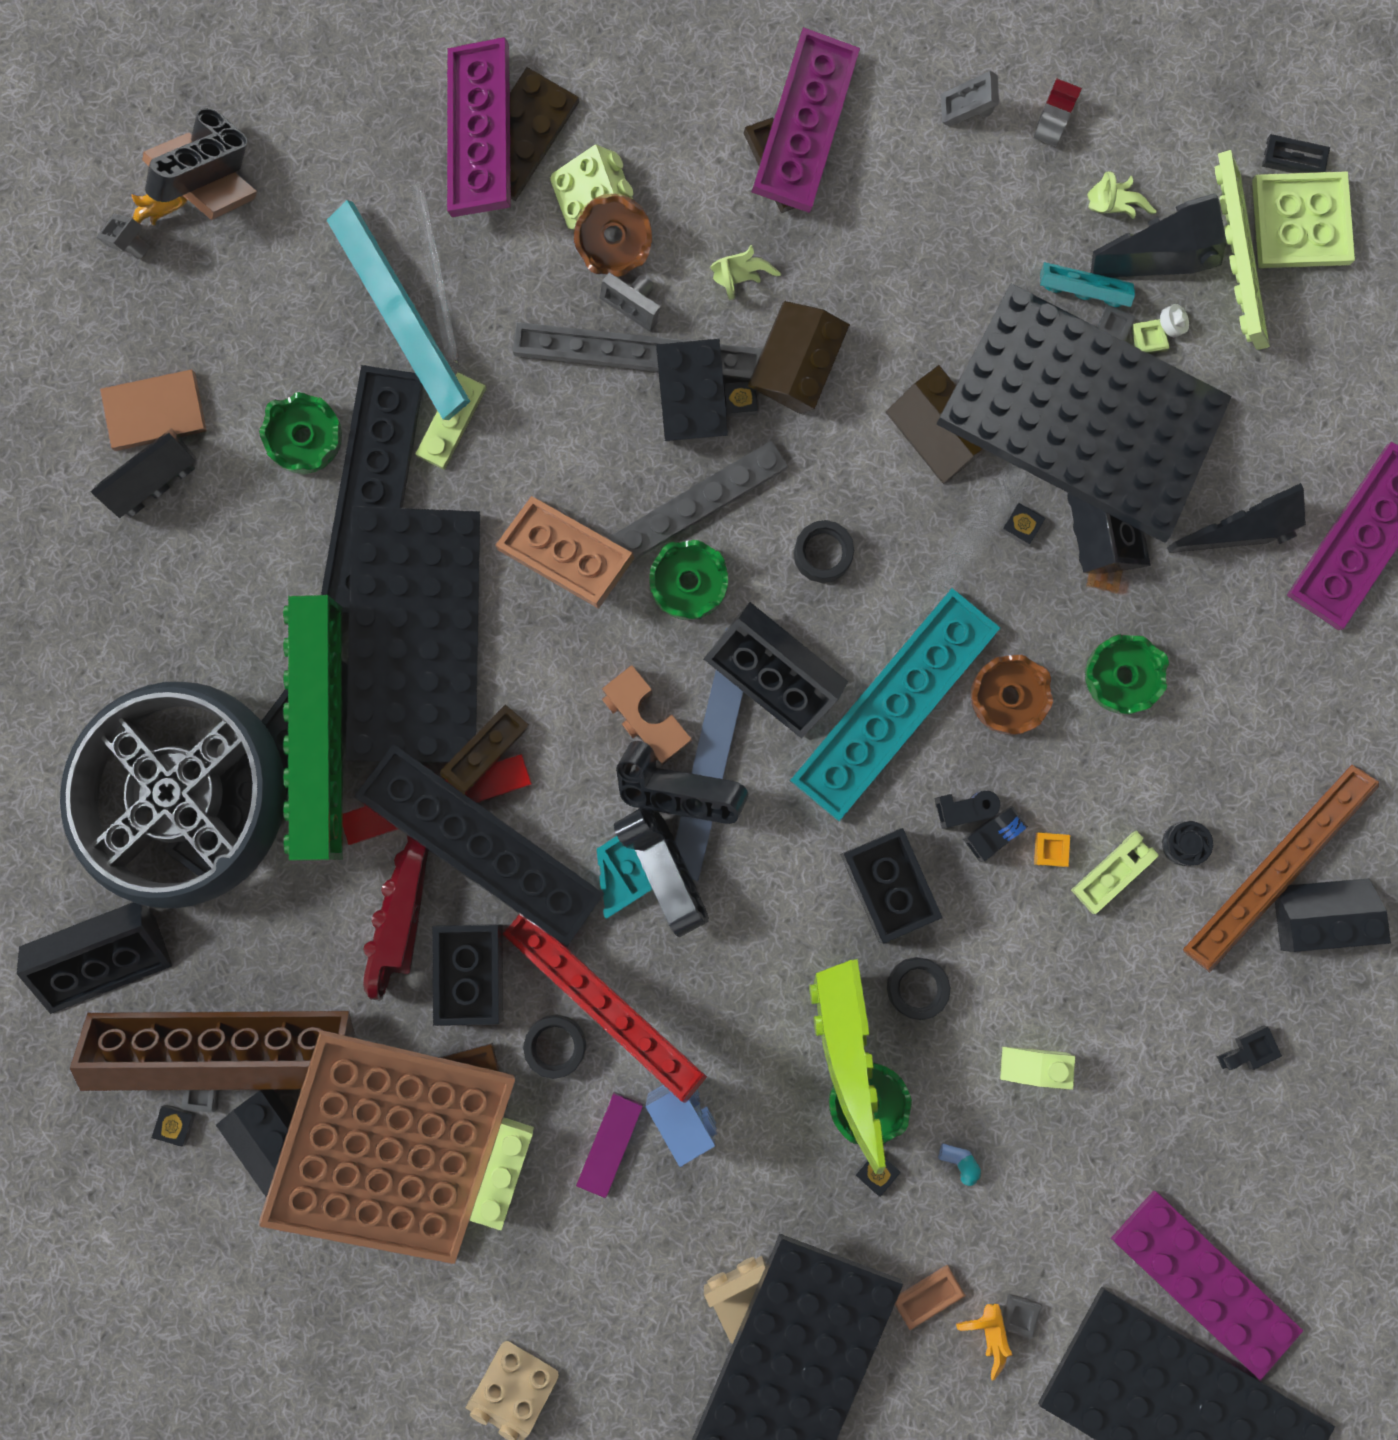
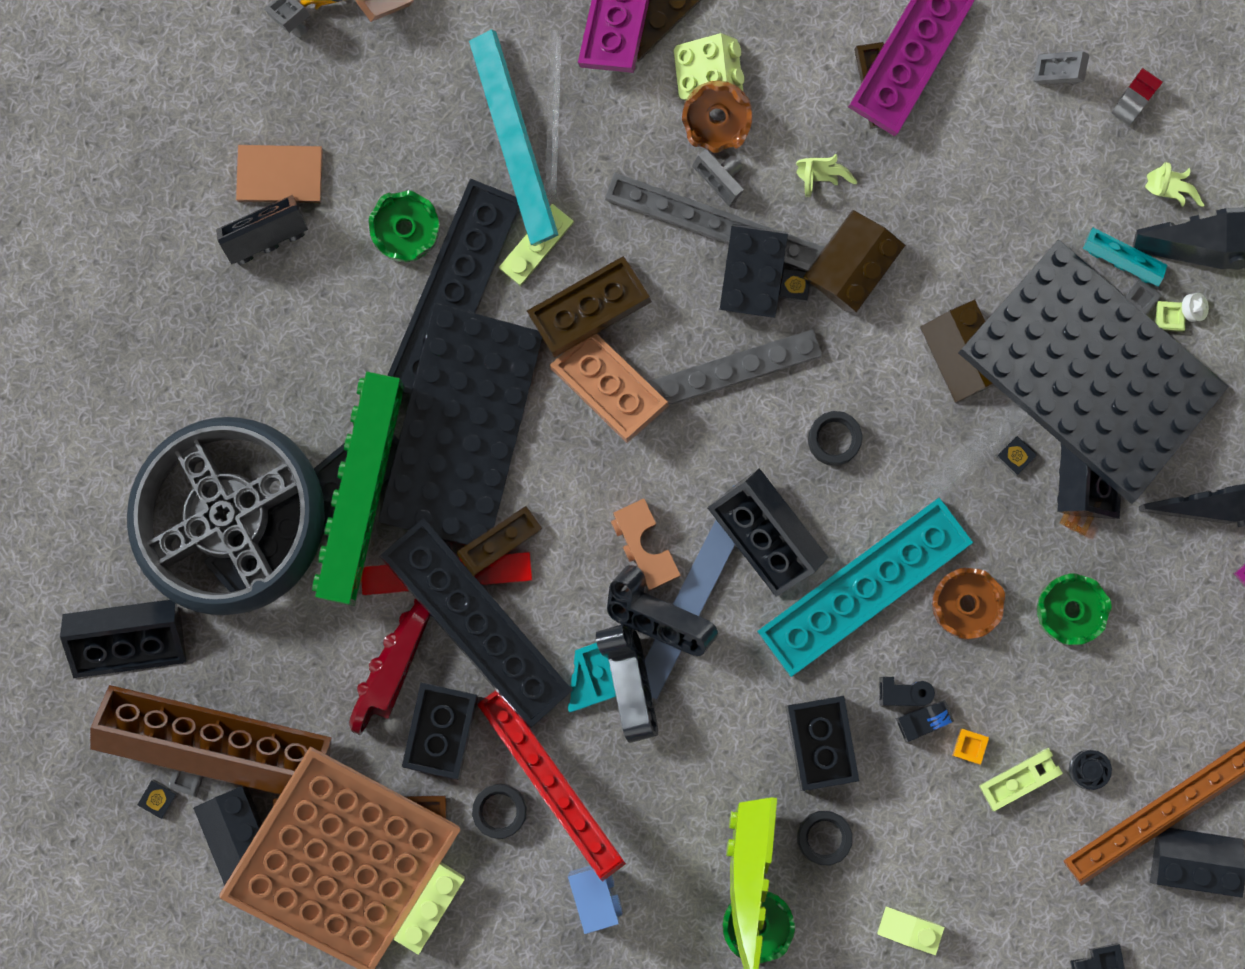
camera: 15 degrees right, 0 degrees up
(523, 472) = (589, 306): none -> dark brown plate
(609, 1145) = (526, 907): magenta tile -> none
(694, 558) = (717, 416): green plate -> none

